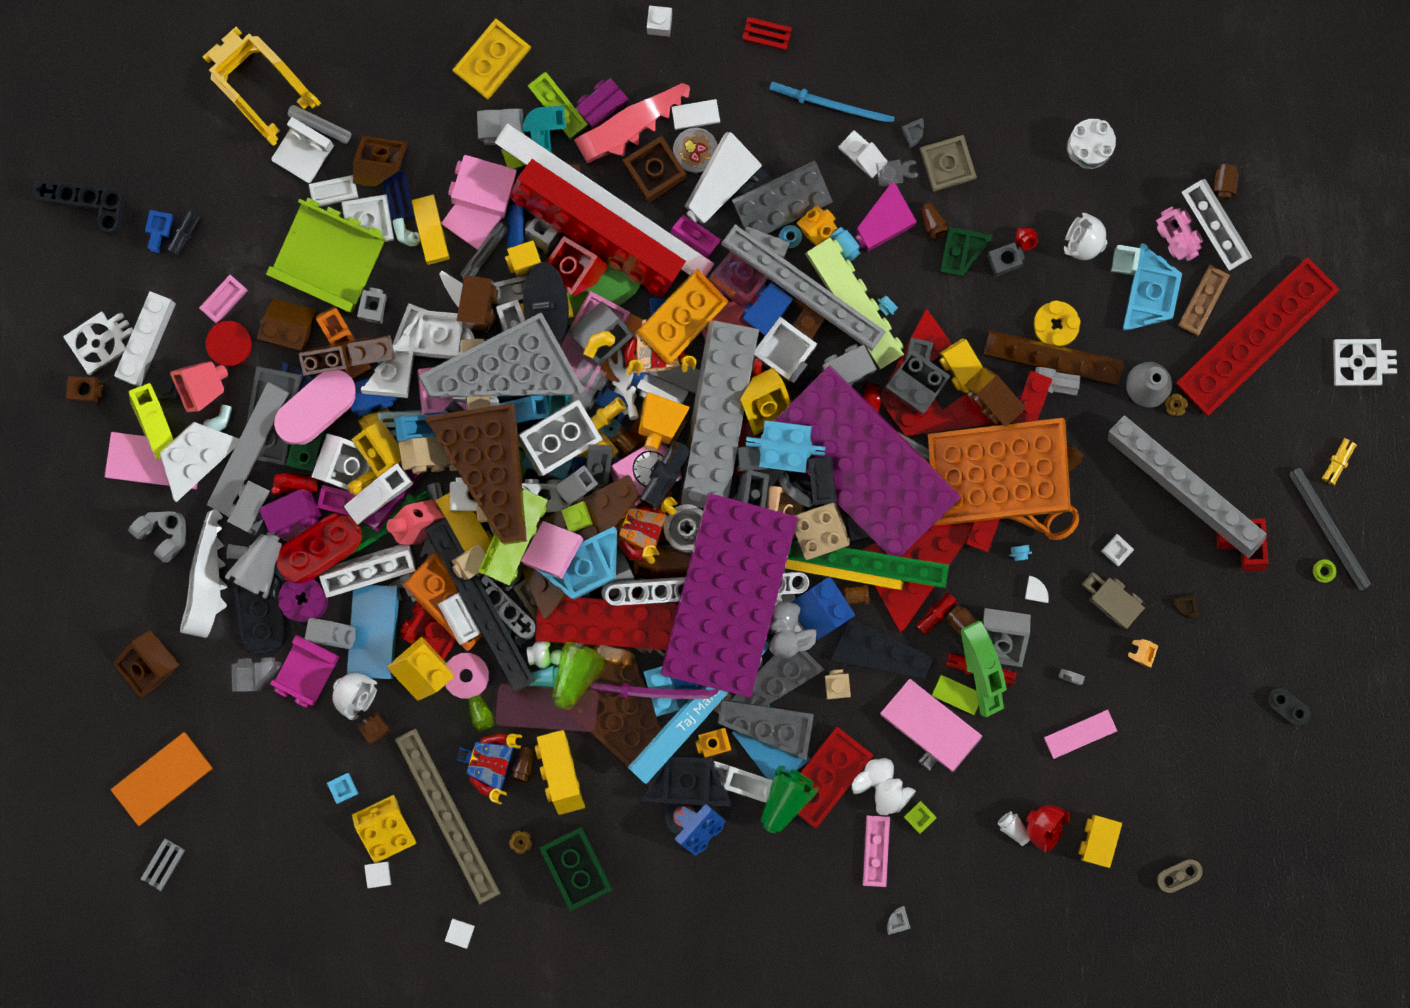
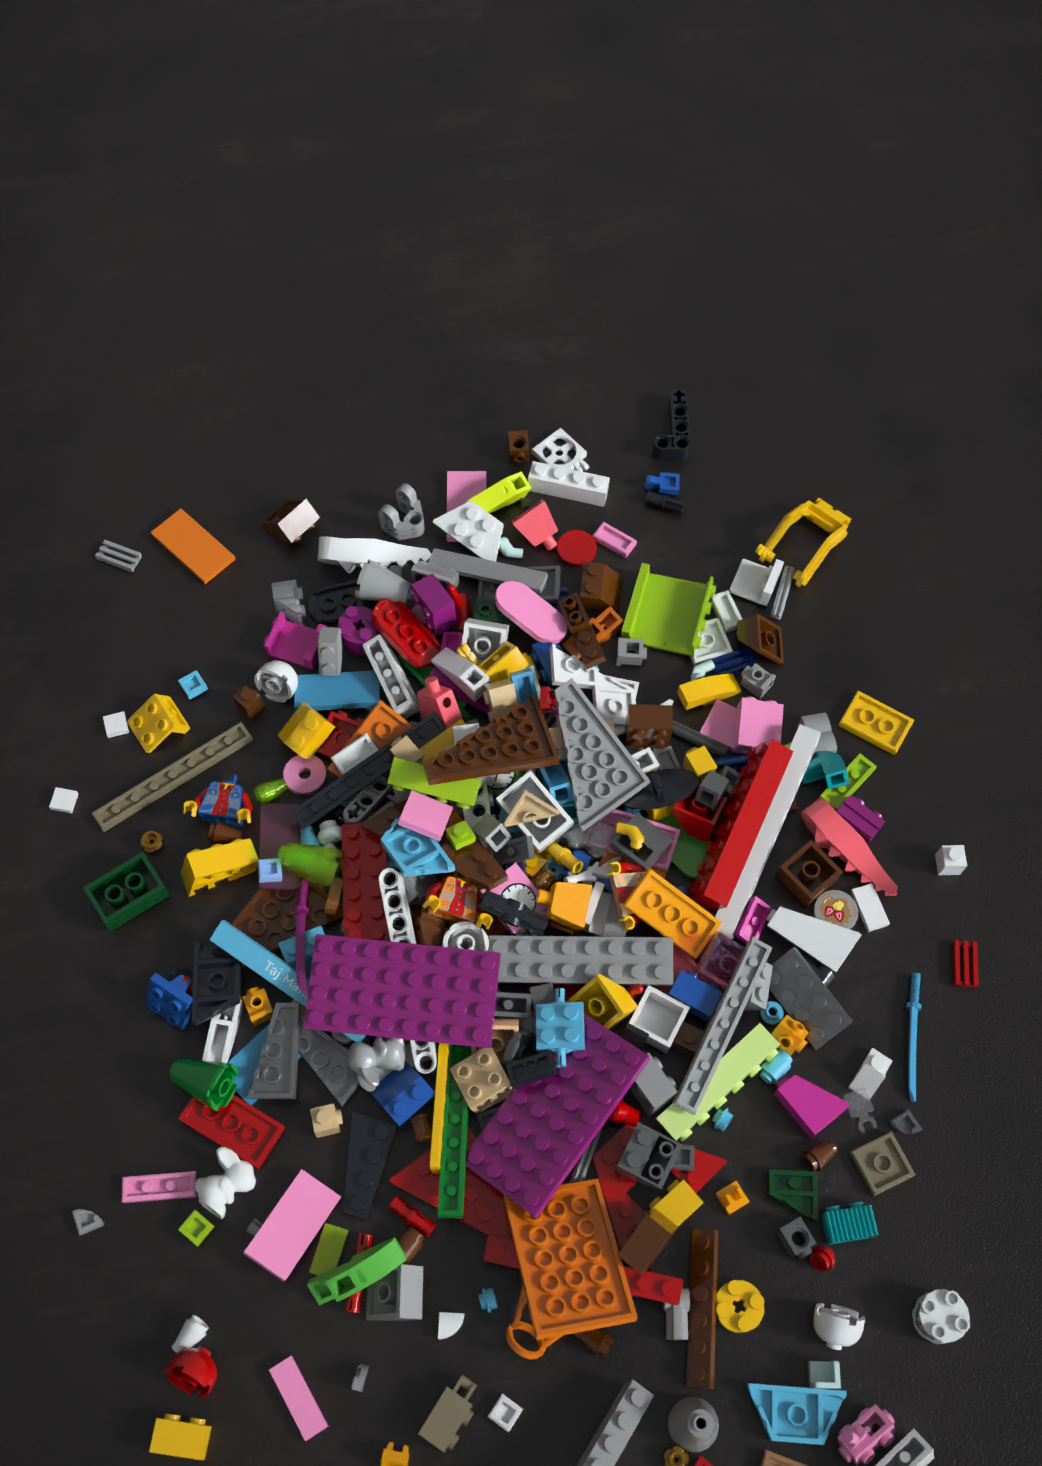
camera: 75 degrees right, 20 degrees down
(433, 177) = (757, 680): none -> light grey brick
(433, 404) = (547, 700): none -> red plate
(557, 250) = (712, 789): none -> dark grey brick
(561, 443) = (529, 809): none -> tan tile
(576, 719) = (269, 870): none -> light blue tile
(960, 311) = (732, 1197): none -> light orange tile
(999, 208) = (848, 1224): none -> teal brick

